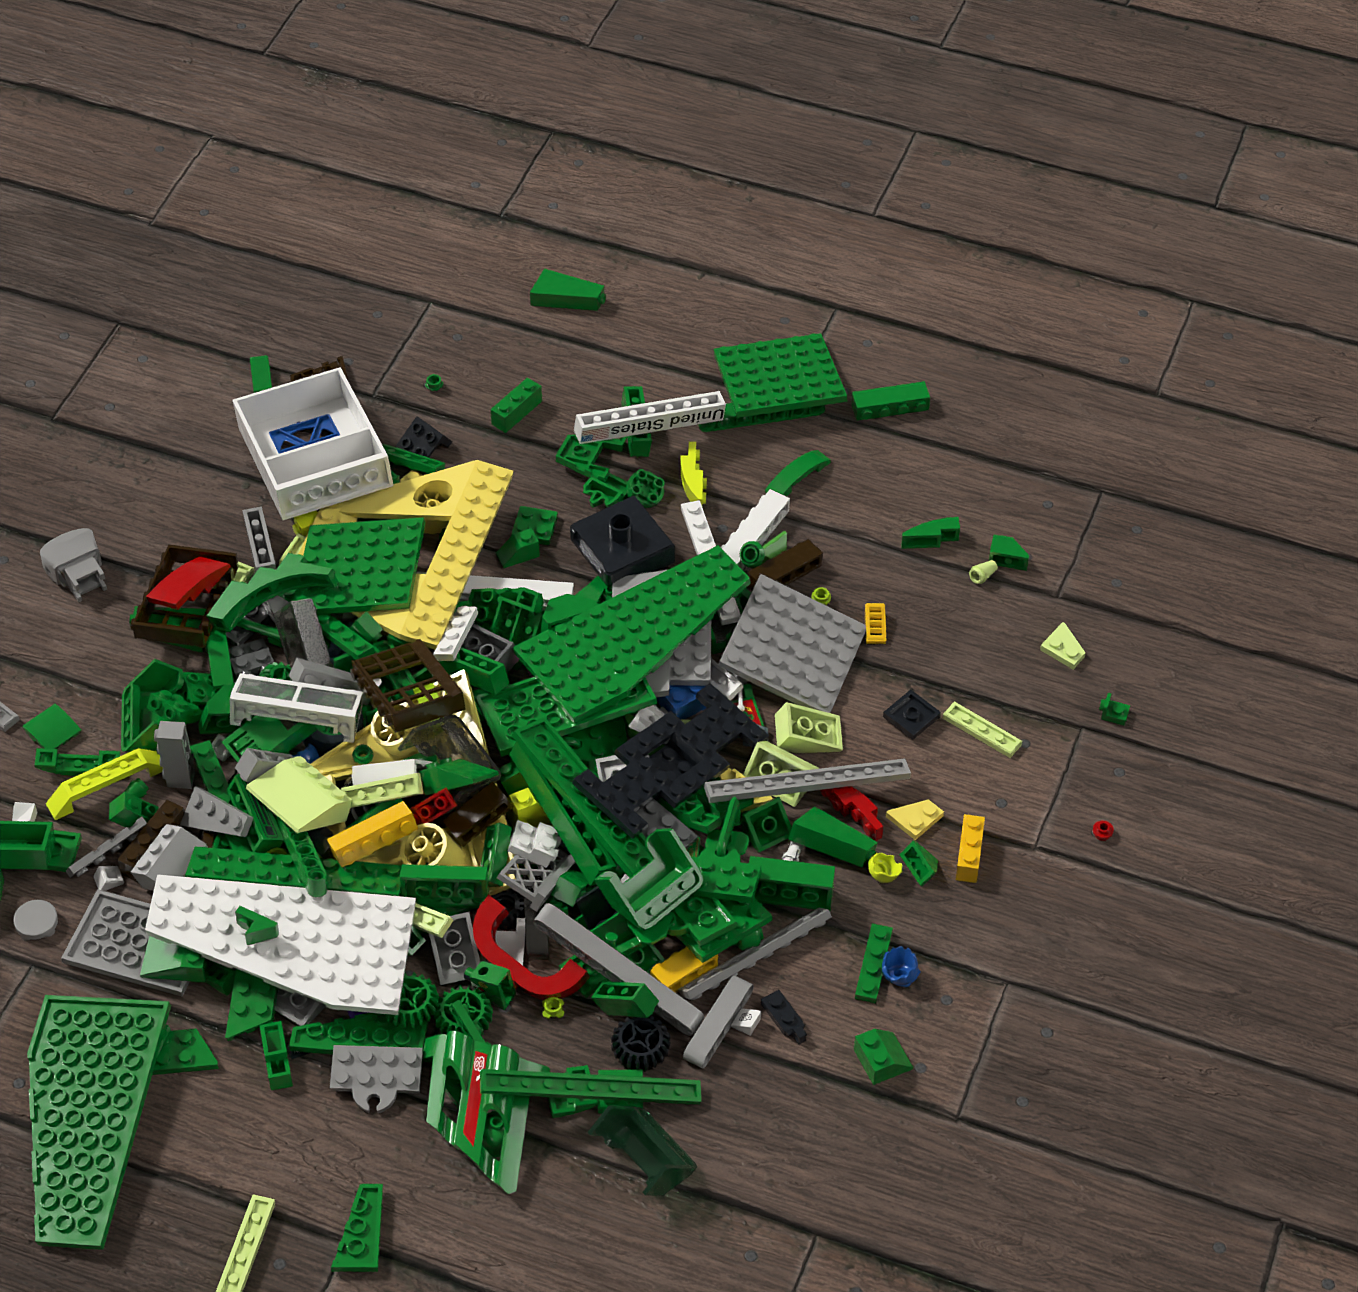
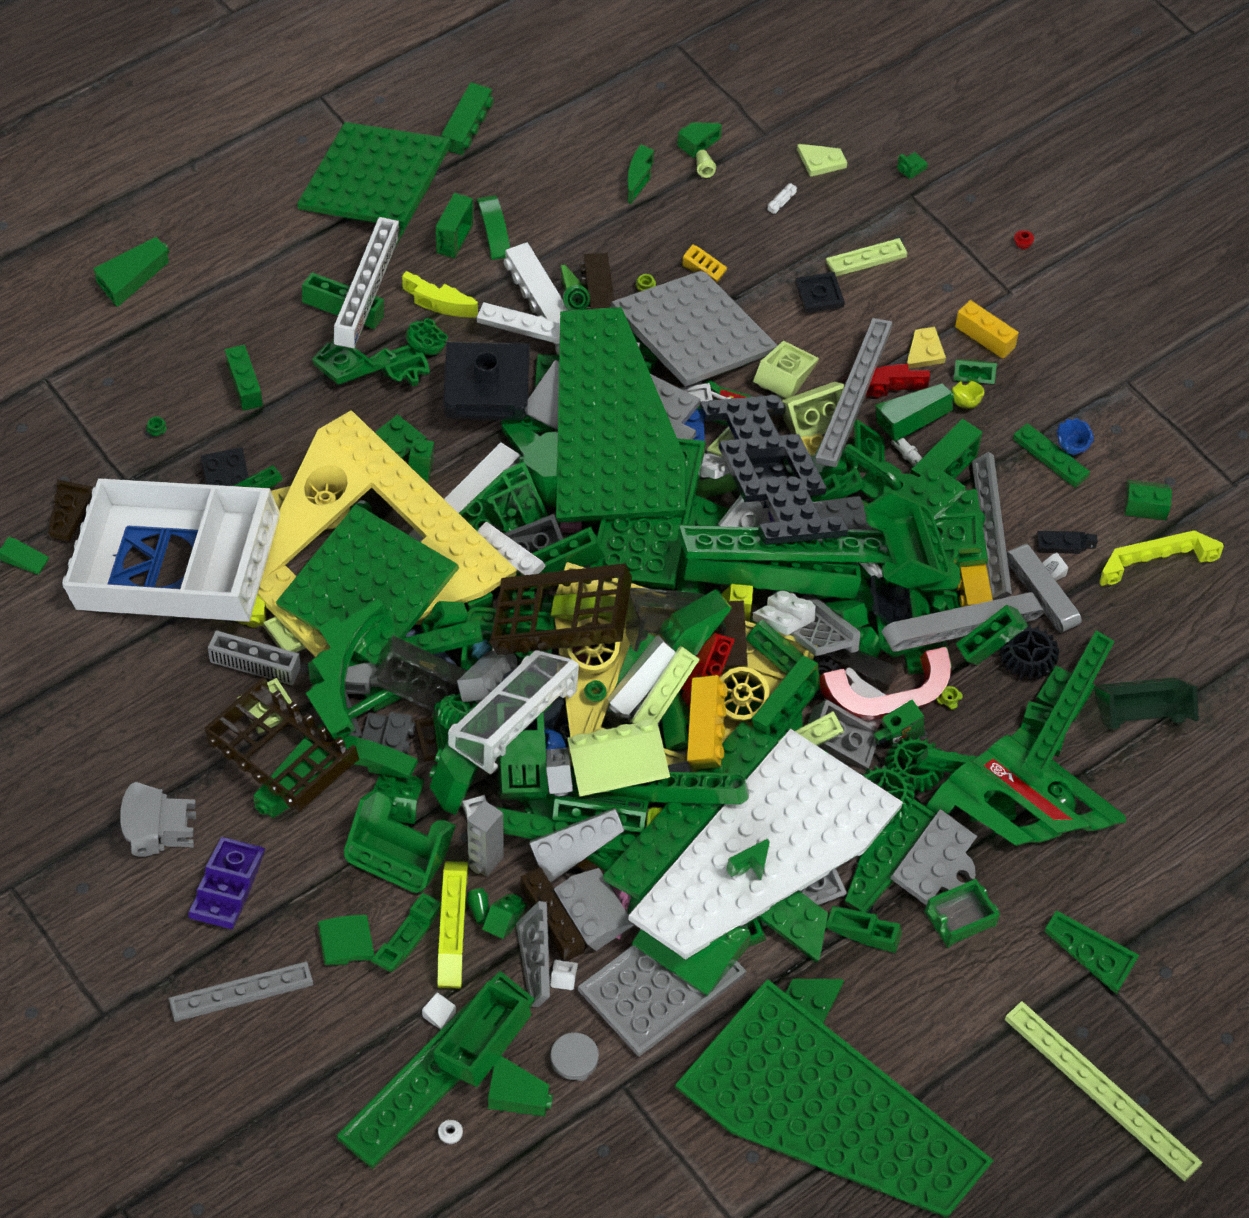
camera: 60 degrees left, 5 degrees up
(56, 635) = (226, 883): none -> dark purple slope
(173, 707) = (421, 817): green plate -> none
(188, 582) = (272, 732): red slope -> none
(337, 1116) = (962, 912): none -> green window
(763, 436) = (454, 225): none -> green window
(779, 1062) = (1205, 548): none -> neon yellow slope
(994, 641) = (782, 198): none -> white axle

